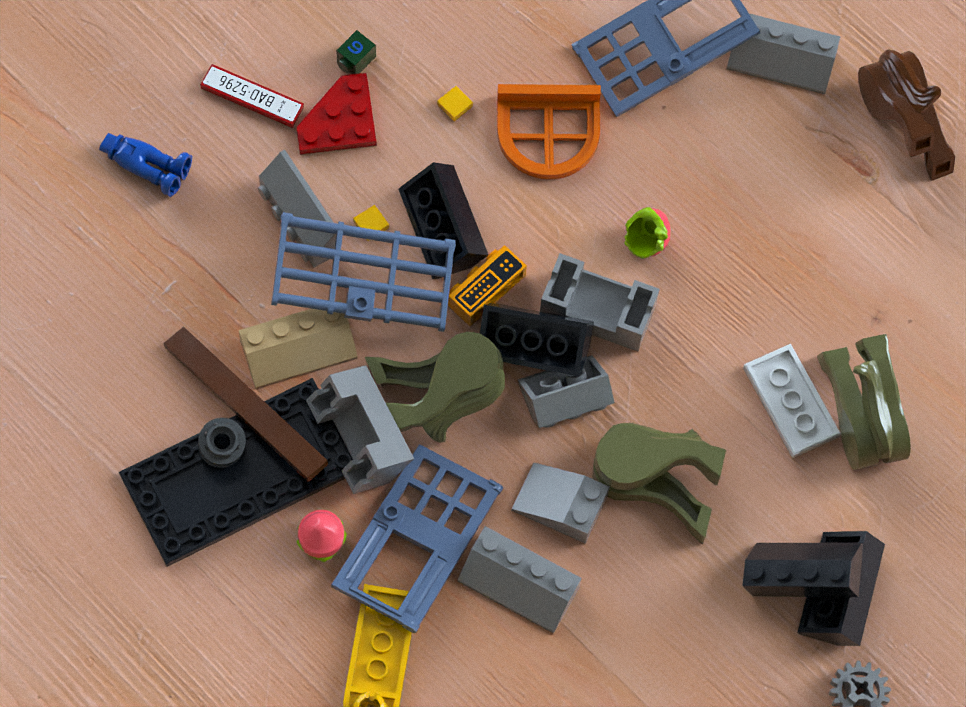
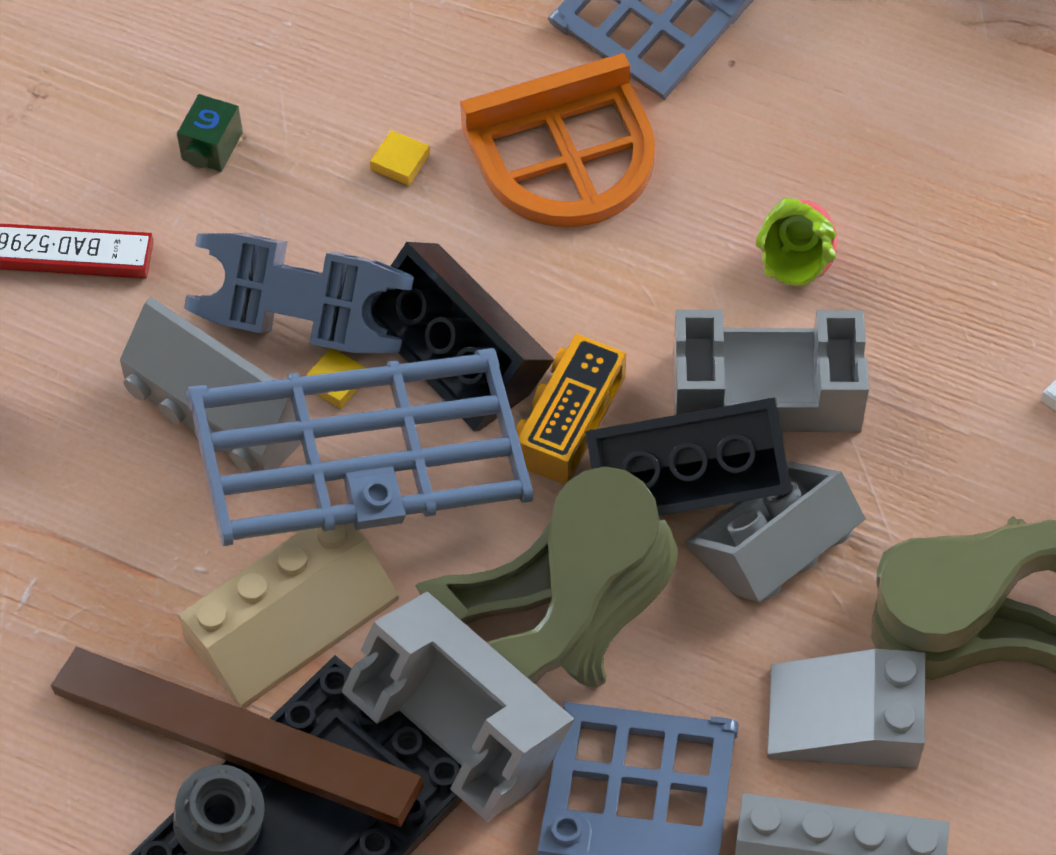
camera: 15 degrees left, 10 degrees down
(340, 118) = (218, 202): red plate -> none
(382, 178) = (335, 300): none -> sand blue piece

